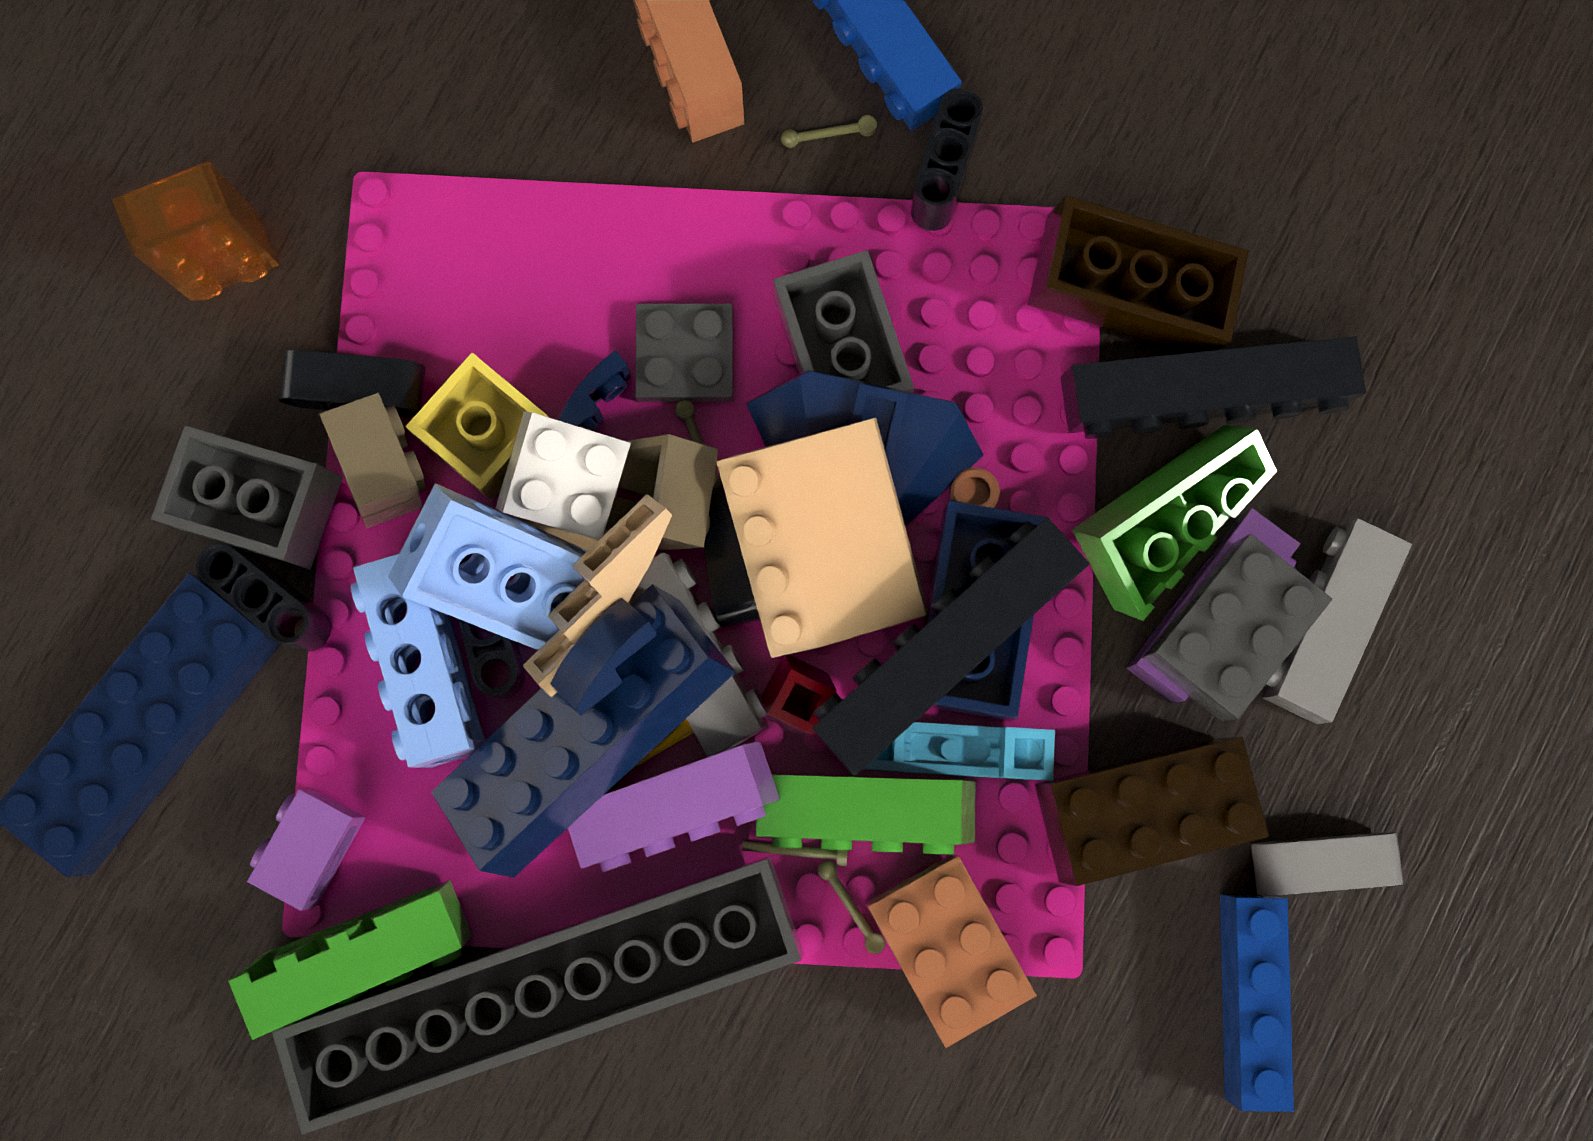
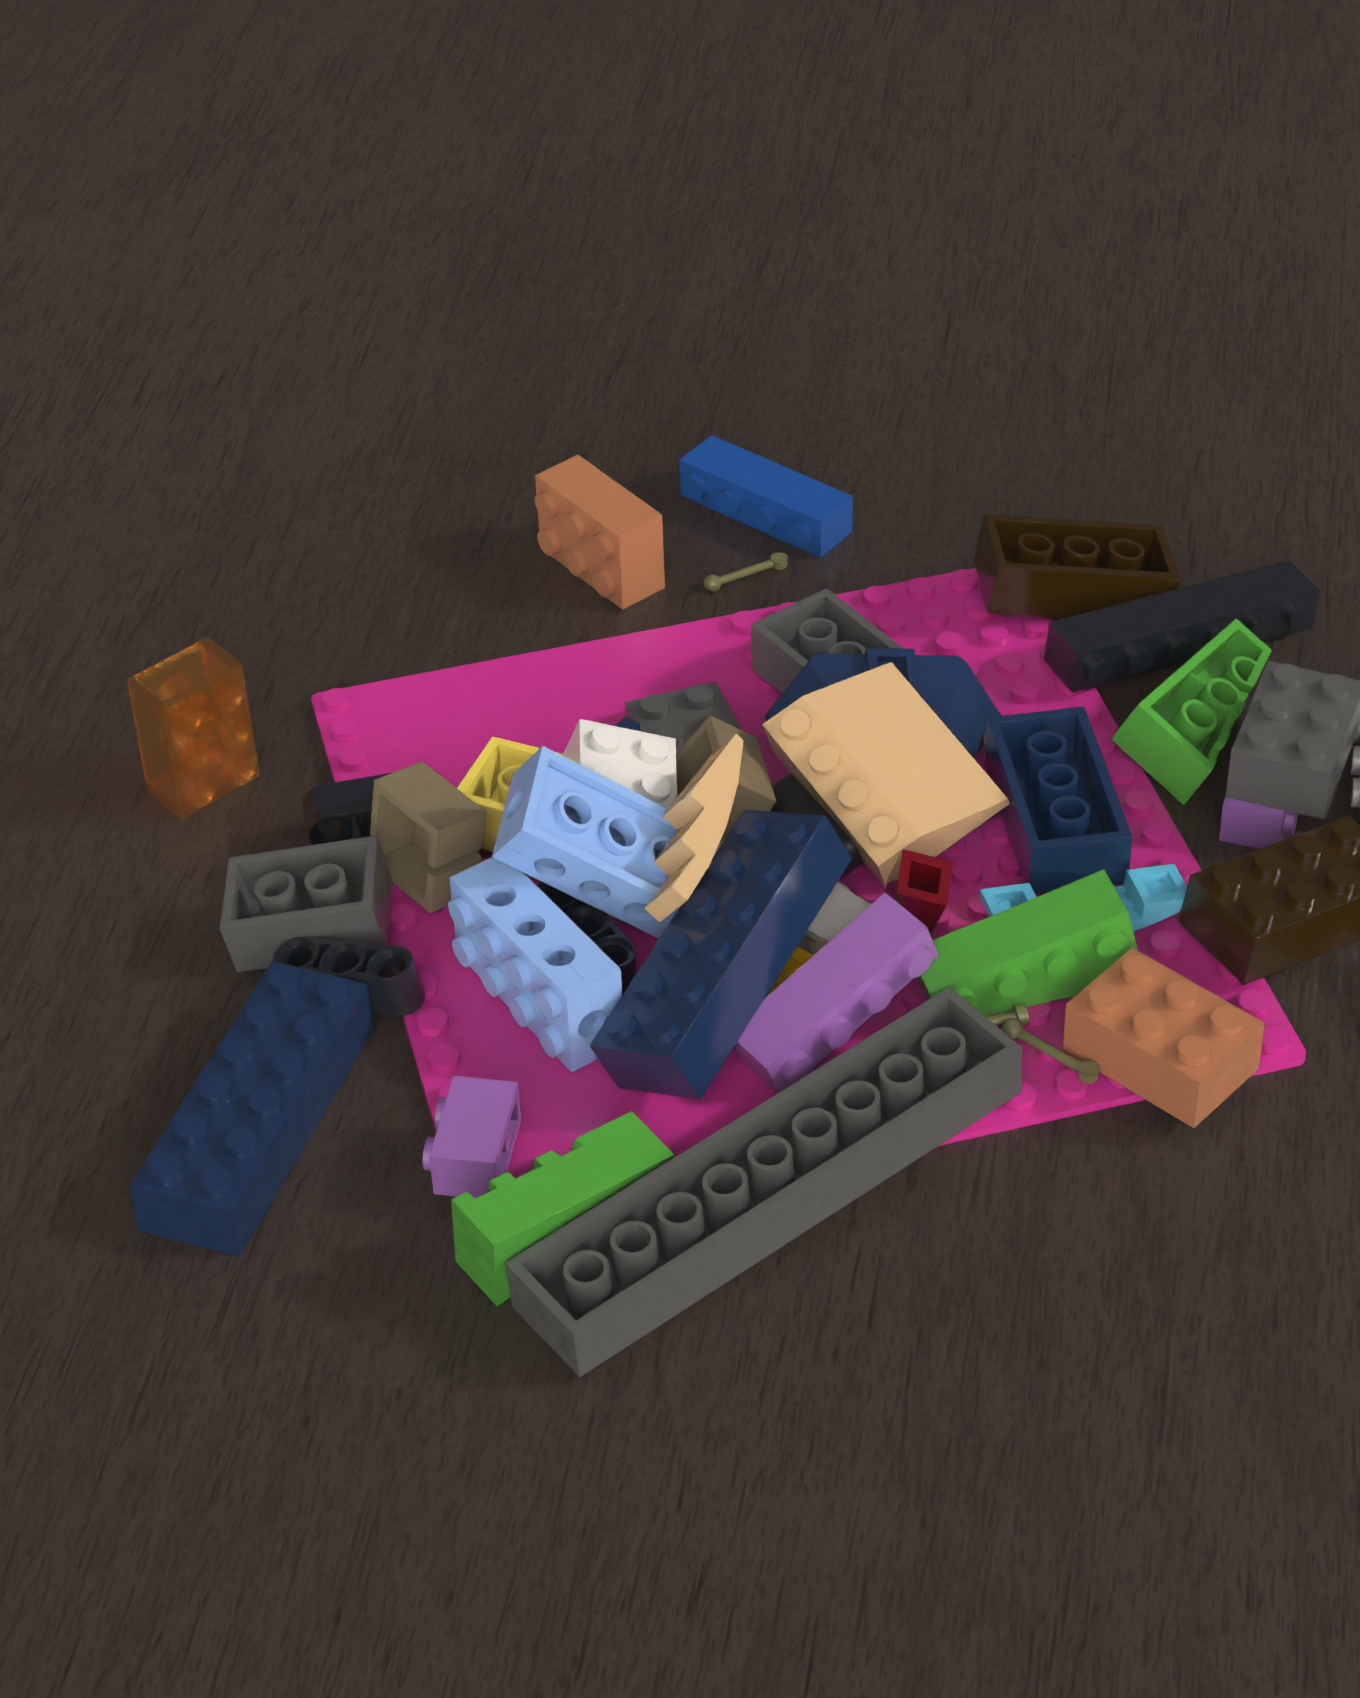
camera: 15 degrees left, 40 degrees down
(590, 665) = (724, 845): dark blue slope -> none
(949, 646) = (1038, 793): black brick -> none
(951, 141) = (864, 549): black beam -> none

